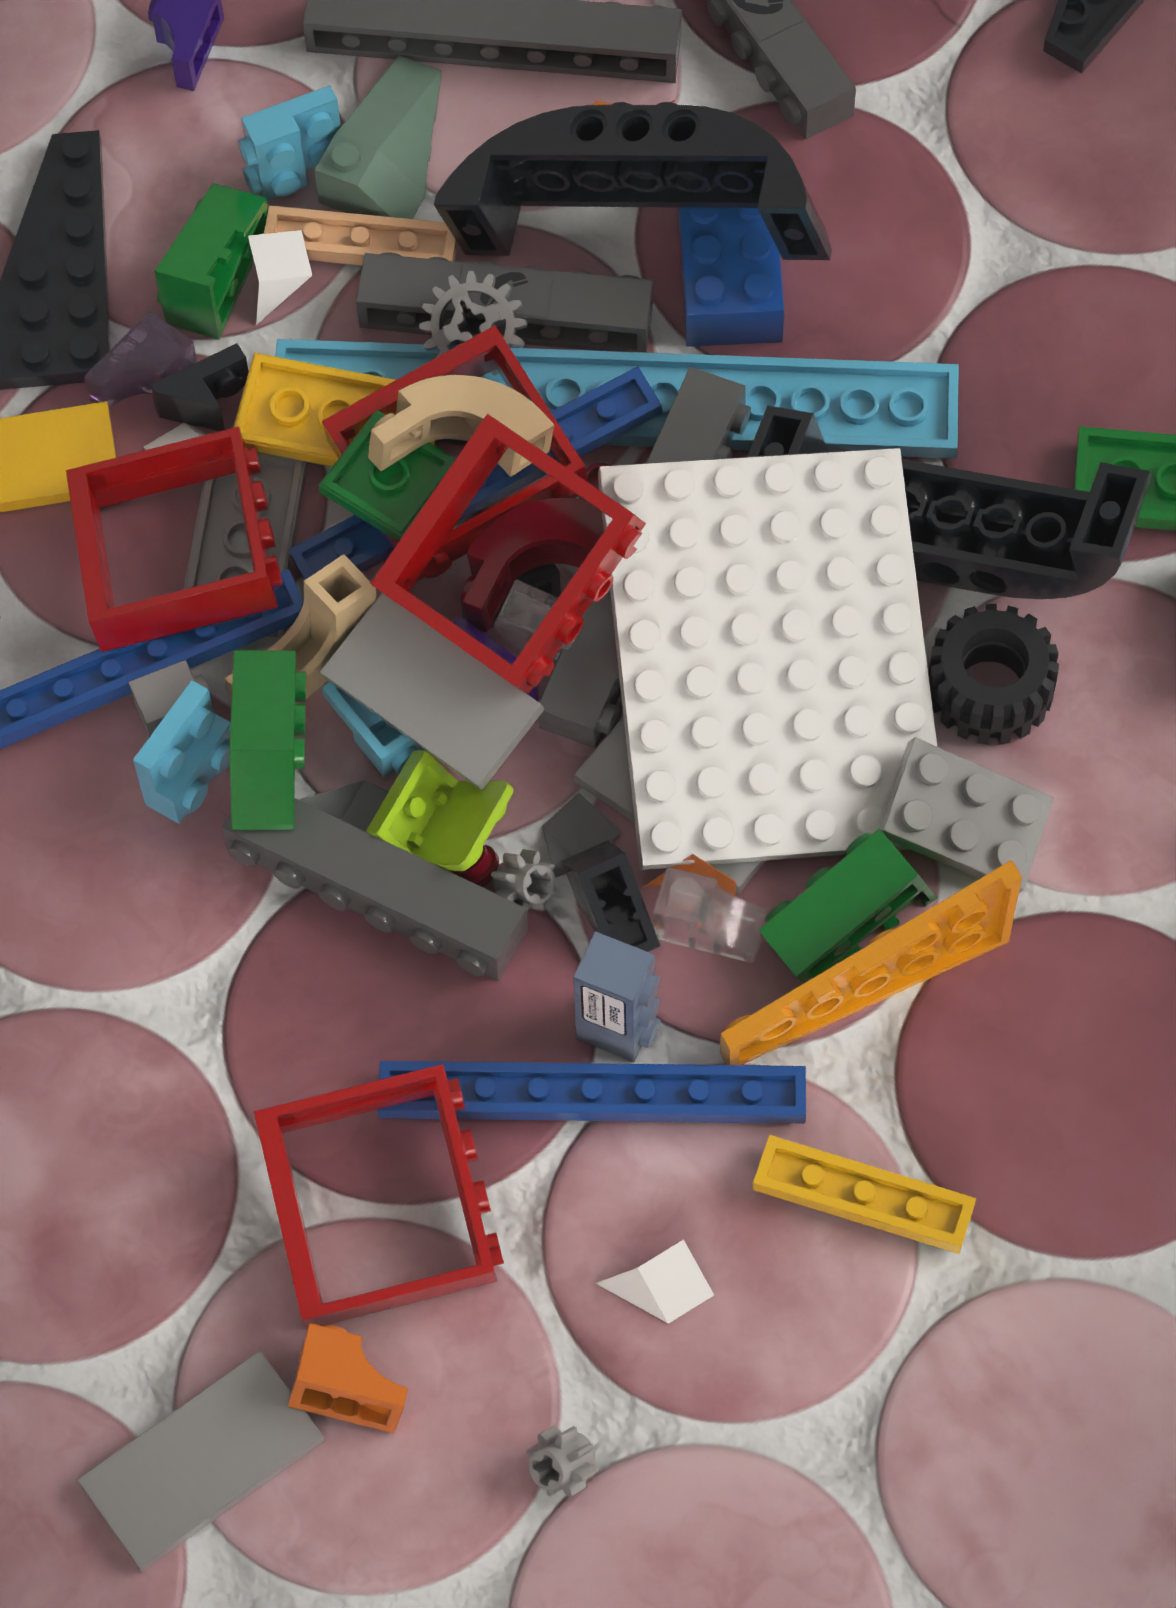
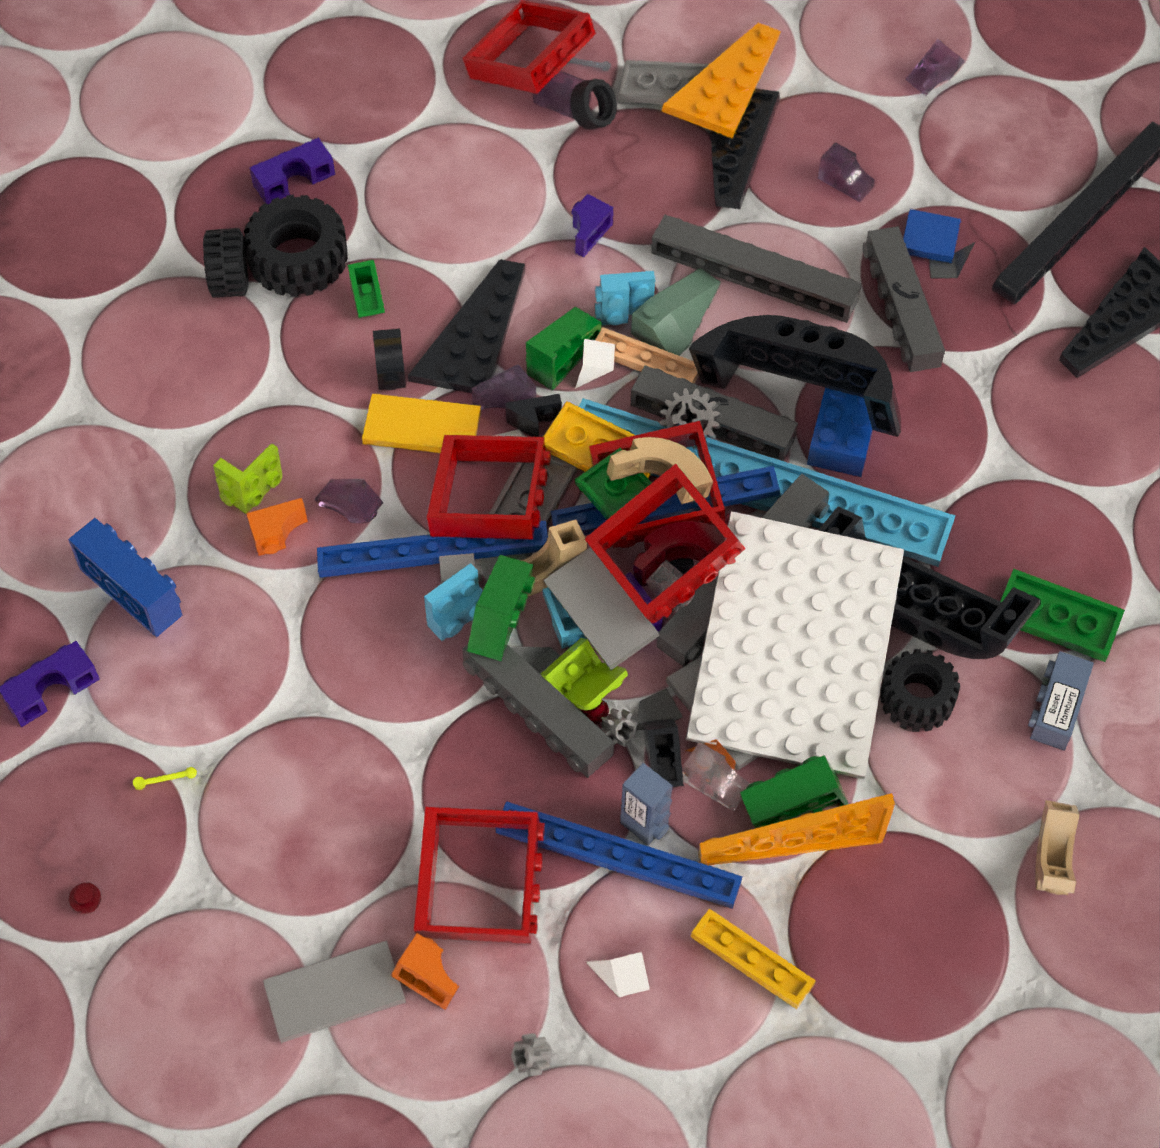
camera: 15 degrees right, 5 degrees down
(963, 812) = (878, 762): light grey plate -> none

